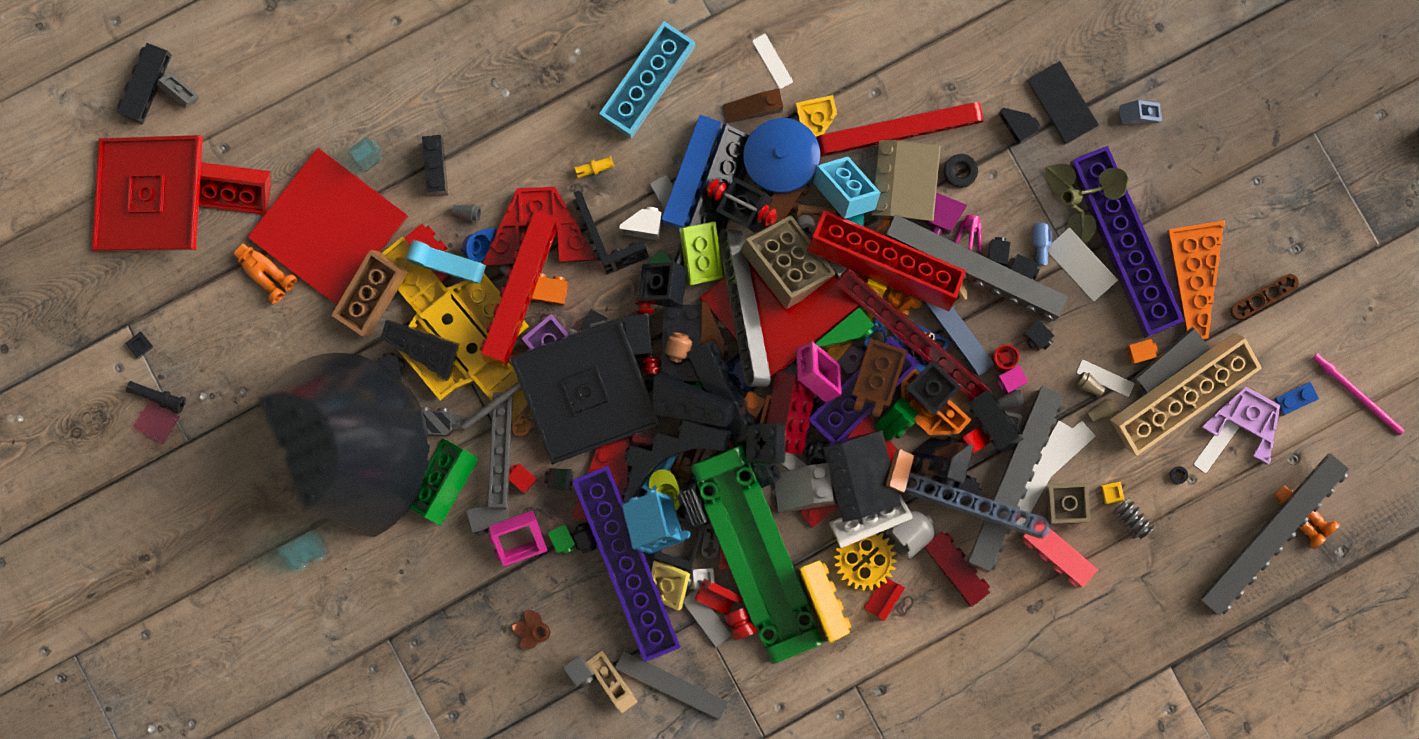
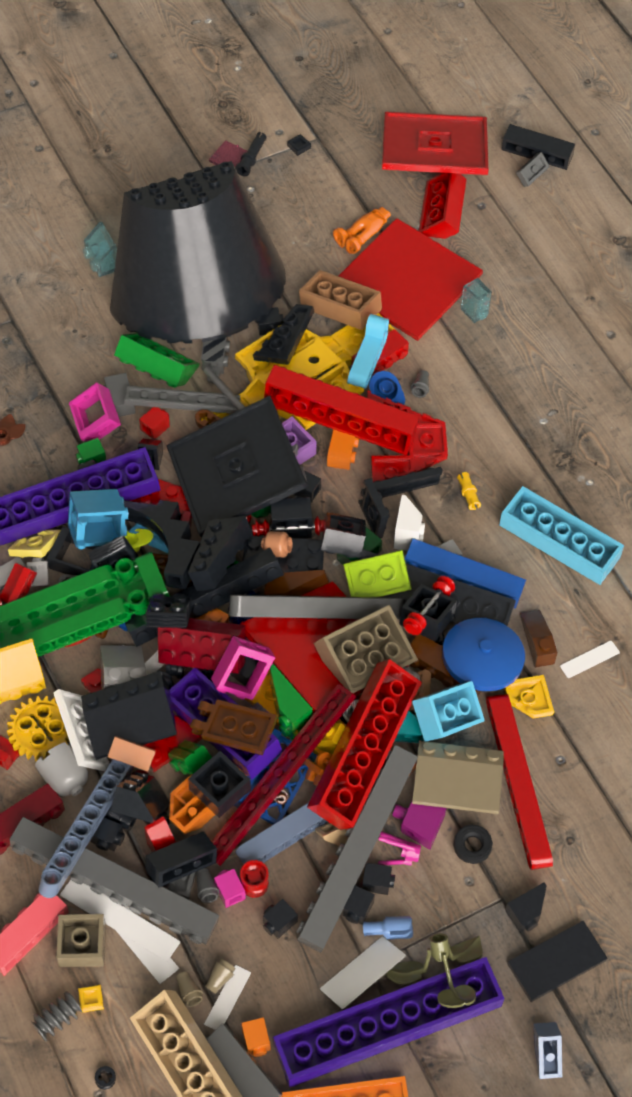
camera: 90 degrees right, 25 degrees down
(434, 165) = (466, 357): black brick -> none

